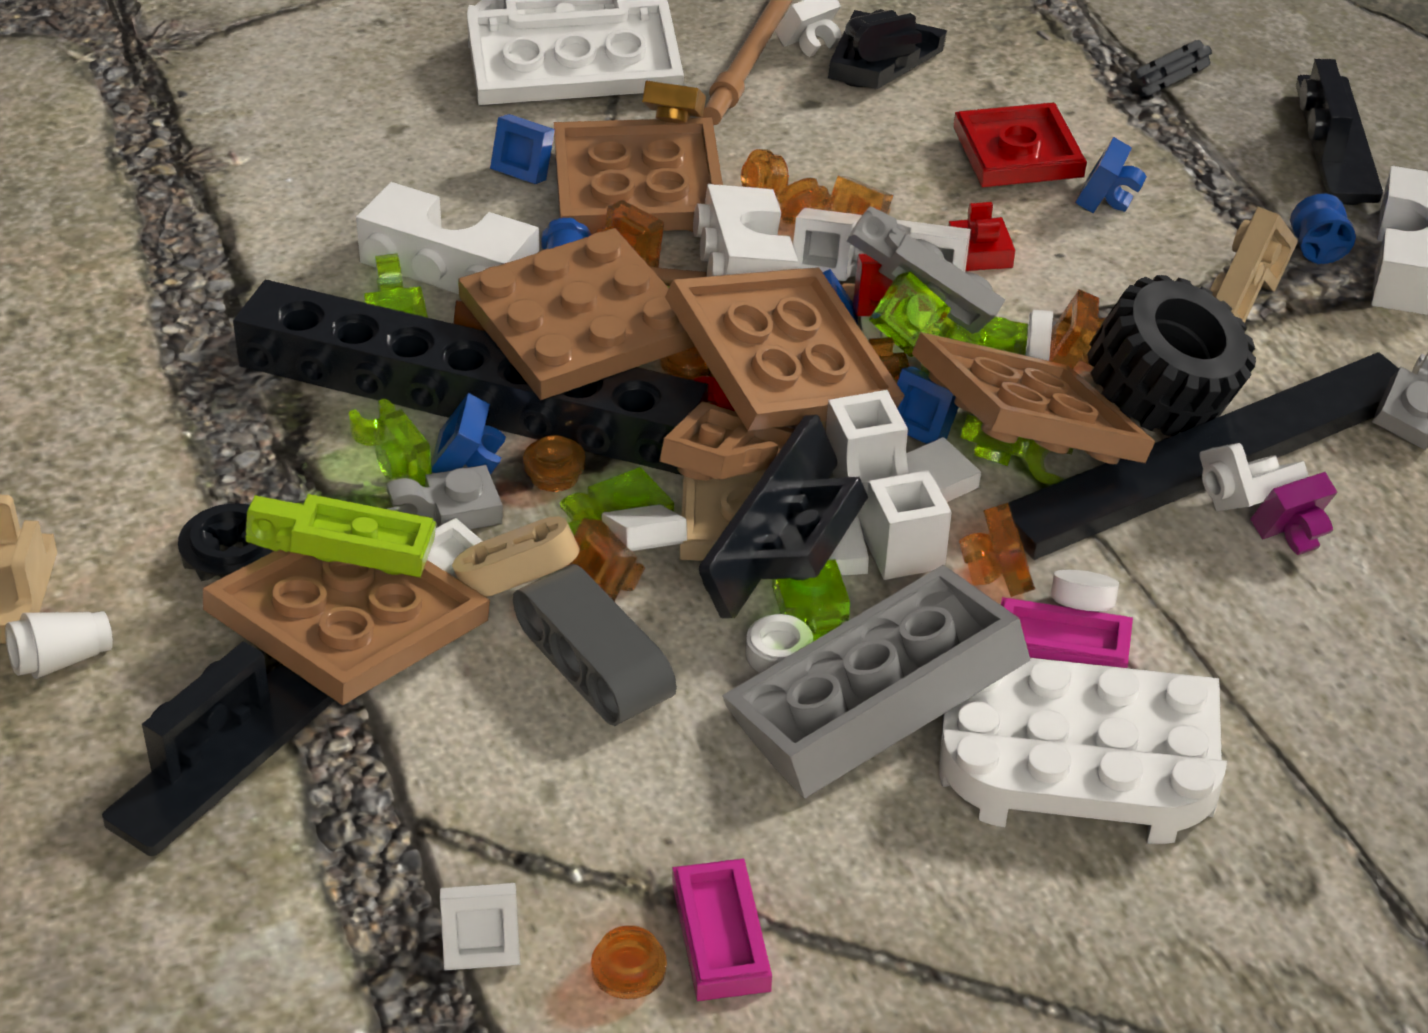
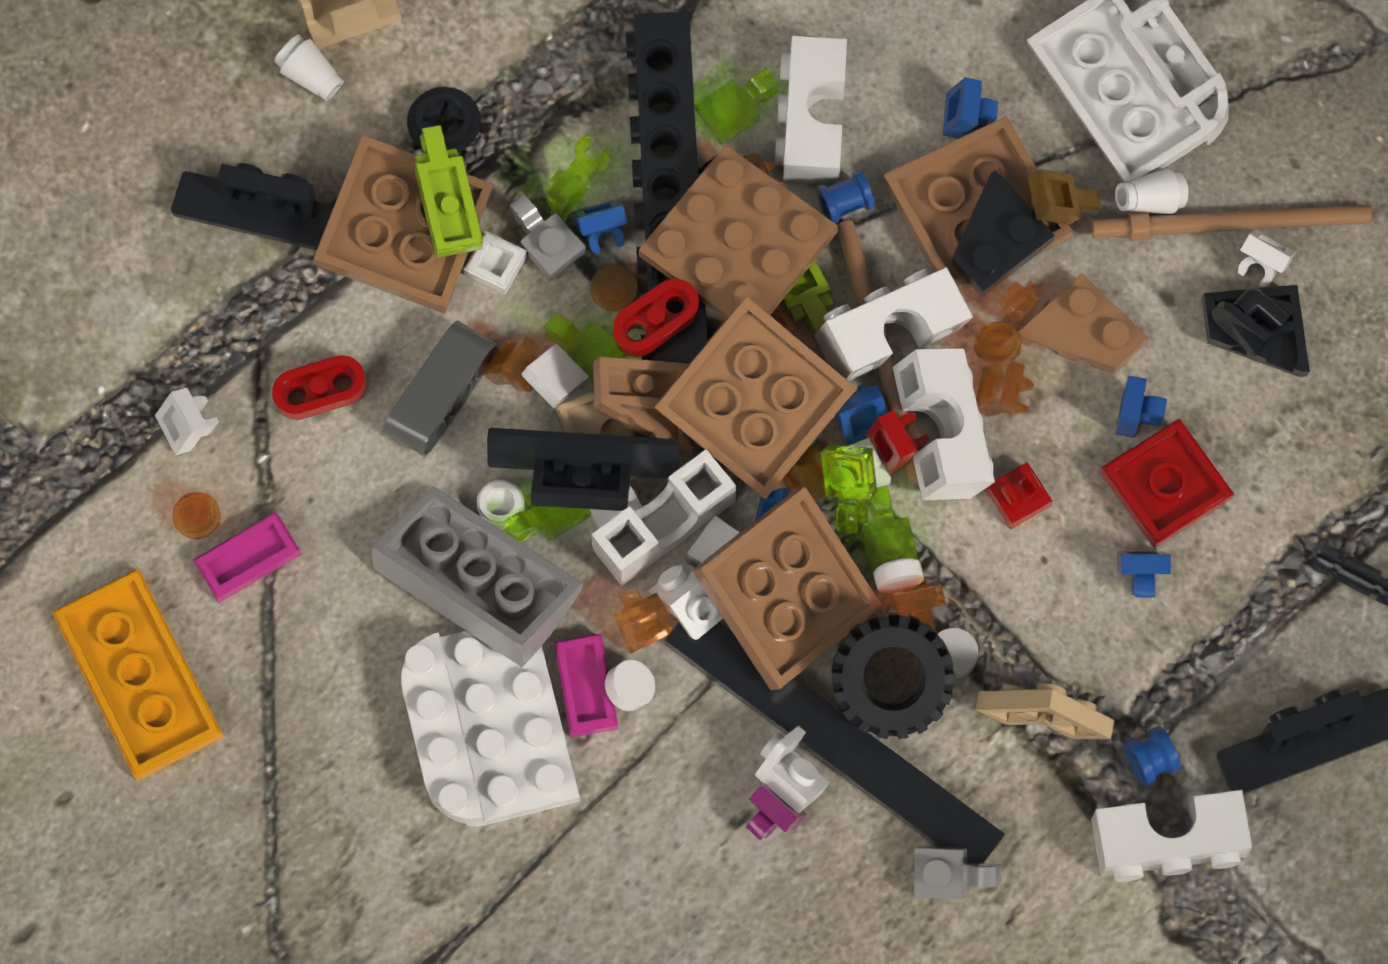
camera: 70 degrees right, 30 degrees up
(517, 556) = (477, 311): tan beam -> none
(517, 766) = (318, 384): none -> red plate
(636, 393) = (652, 317): none -> red plate
(638, 229) = (881, 236): clear orange tile -> none
(686, 153) = (998, 237): none -> black wing
(708, 49) = (1153, 193): none -> white cone
(820, 146) = (1086, 328): none -> medium nougat wing
(926, 136) = (1138, 408): none -> blue tile
(966, 293) = (879, 467): light grey hinge -> none
(990, 485) = (687, 600): none -> white bracket

